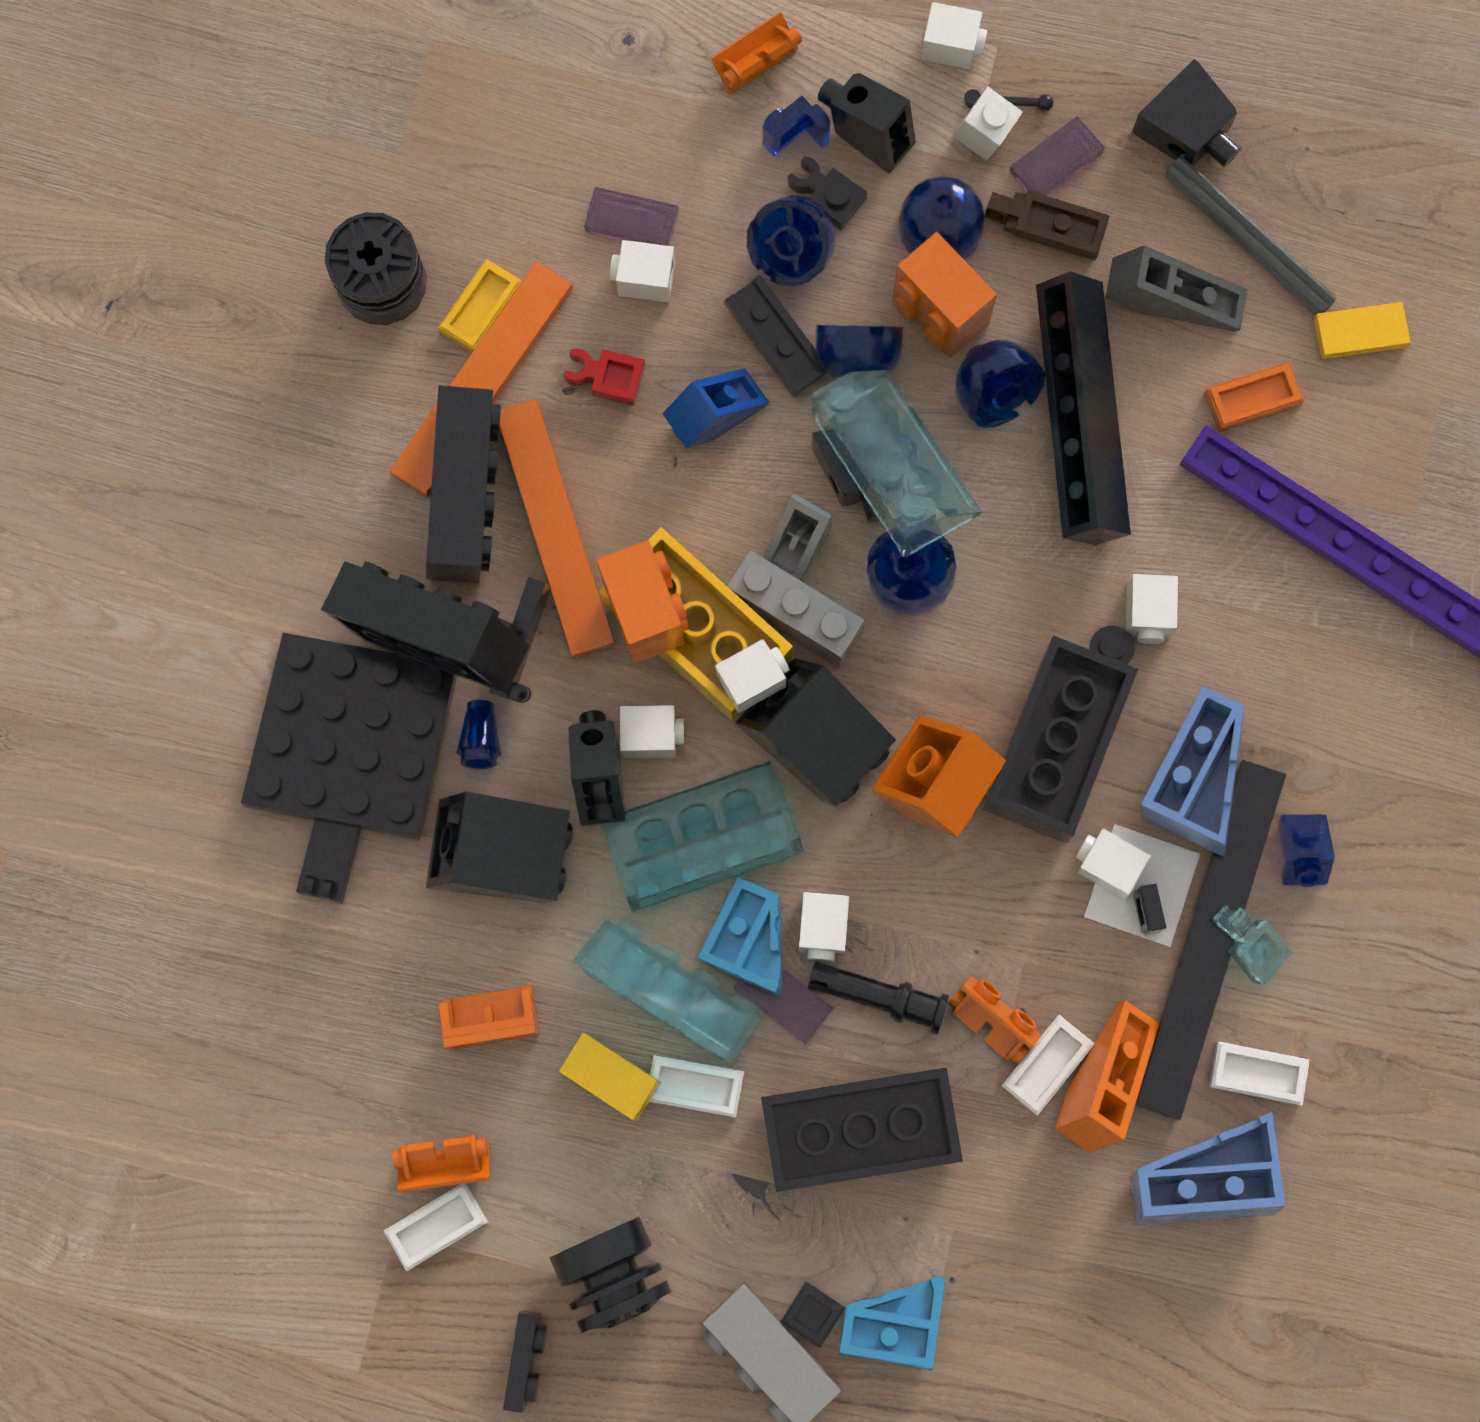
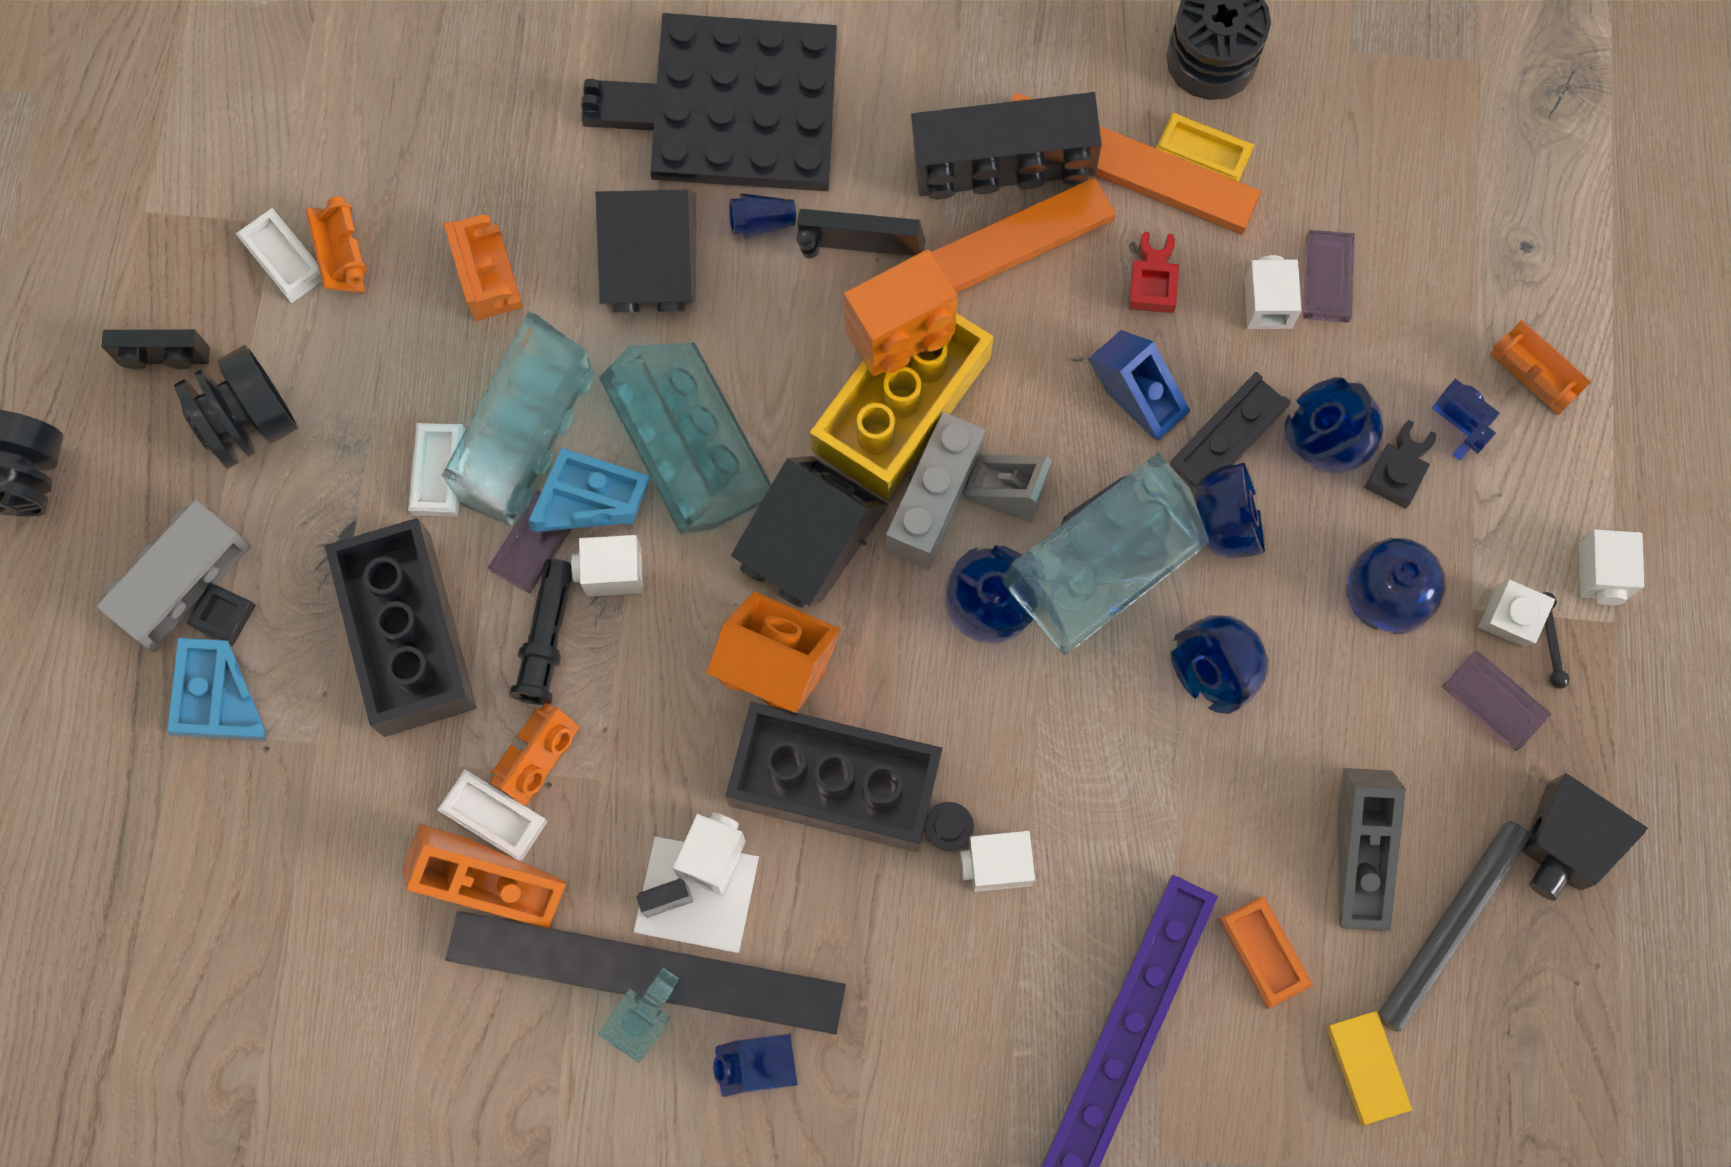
camera: 80 degrees right, 5 degrees down
(426, 625) = (851, 132): black brick -> none
(595, 758) = (737, 319): black torso -> none
(610, 1076) = (435, 385): yellow tile -> none
(650, 731) = (786, 369): white brick -> none
(752, 675) = (845, 439): white brick -> none
(870, 119) = (1499, 479): black torso -> none
(943, 295) = (1304, 586): orange brick -> none
(1050, 222) = (1419, 701): dark brown hinge -> none
(1082, 409) = (1209, 756): black brick -> none
(1199, 774) = (818, 932): medium blue wedge -> none
(1213, 1180) = (379, 999): medium blue wedge -> none
(1259, 1073) = (505, 1043): white tile -> none

